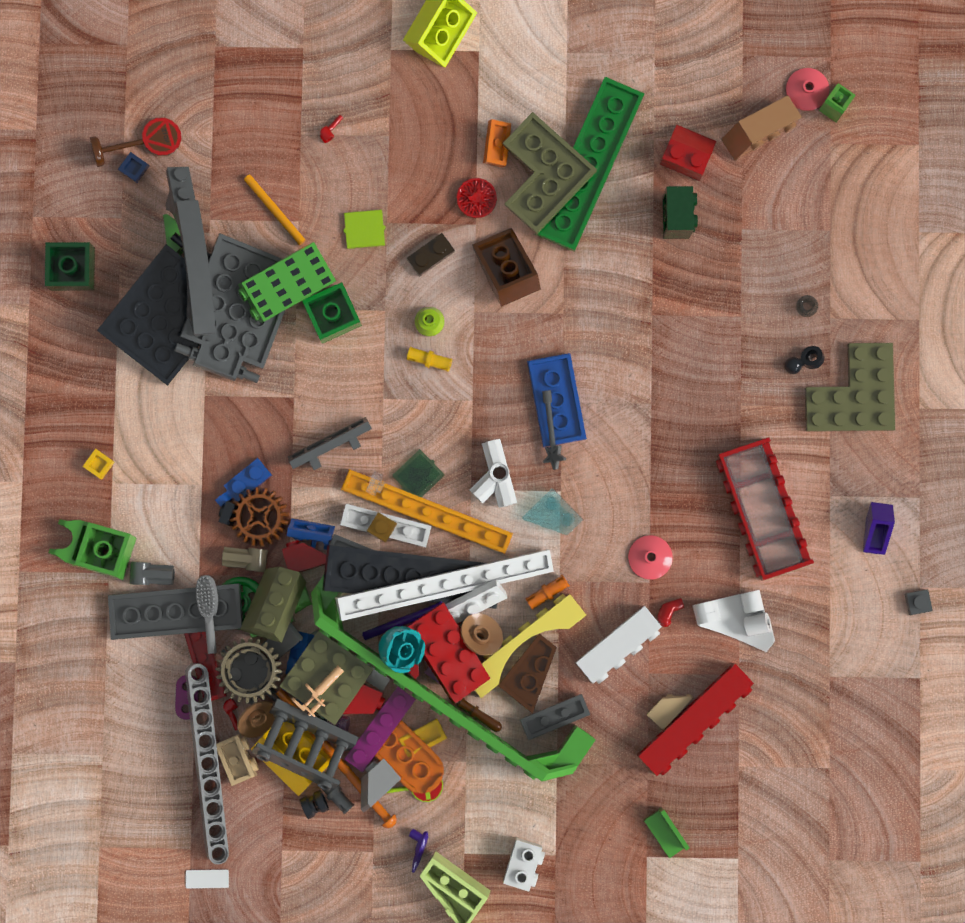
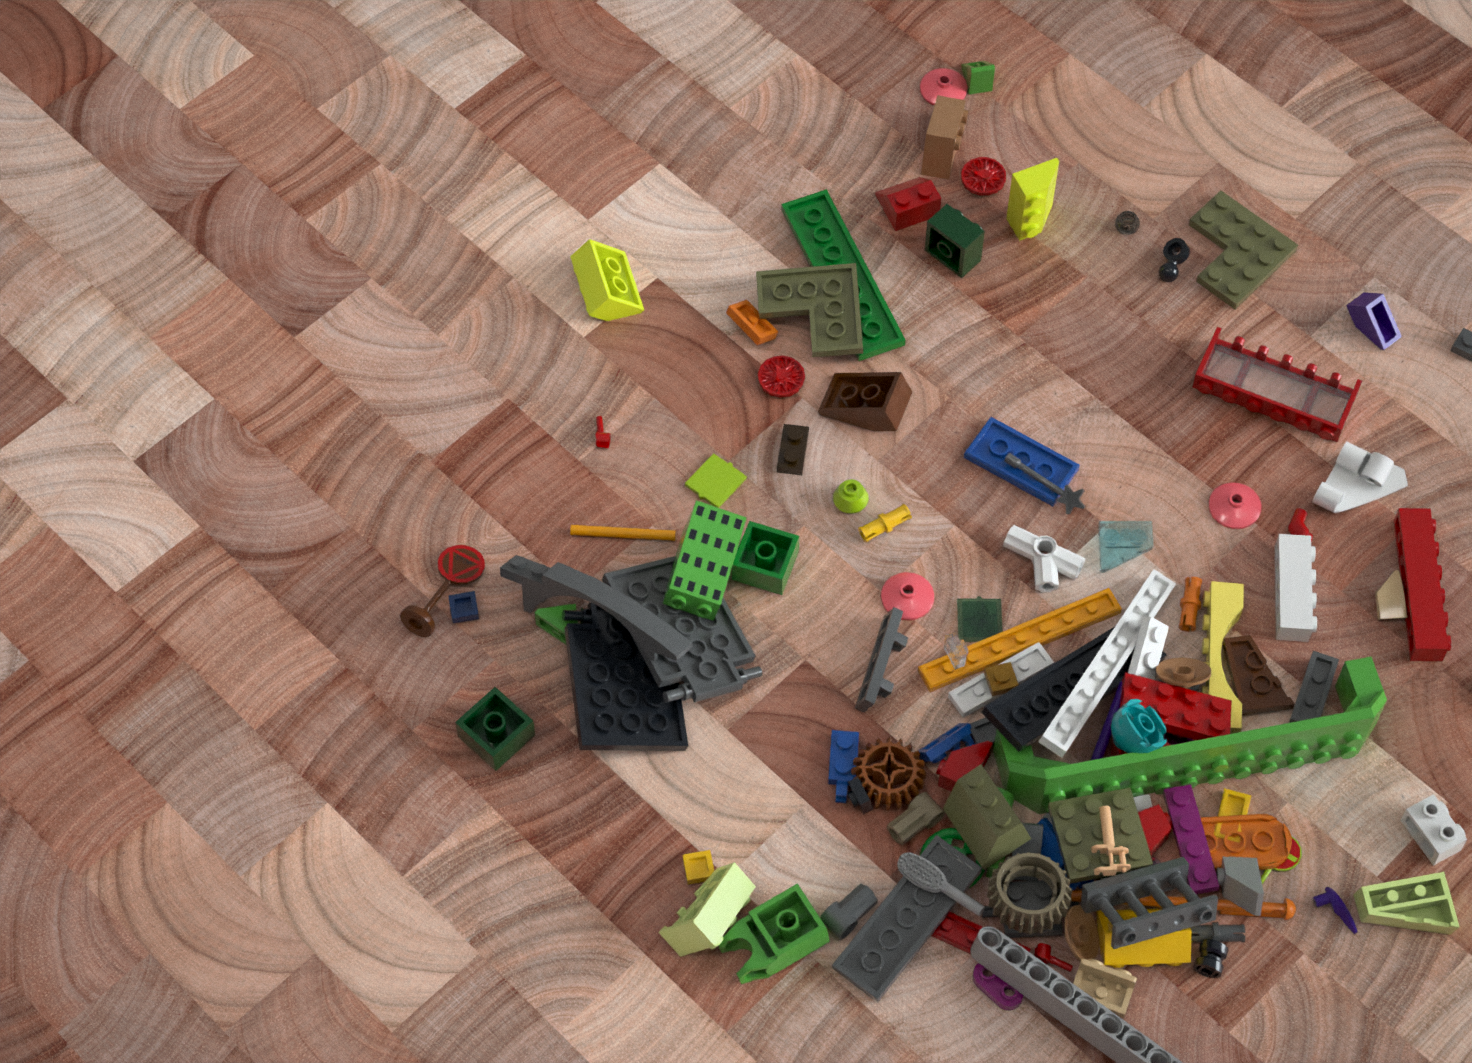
camera: 45 degrees left, 25 degrees down
(73, 499) = (711, 913): none -> yellowish green wedge
(394, 429) = (914, 604): none -> coral dish
(756, 181) = (983, 176): none -> red wheel
(756, 235) = (1031, 198): none -> neon yellow slope

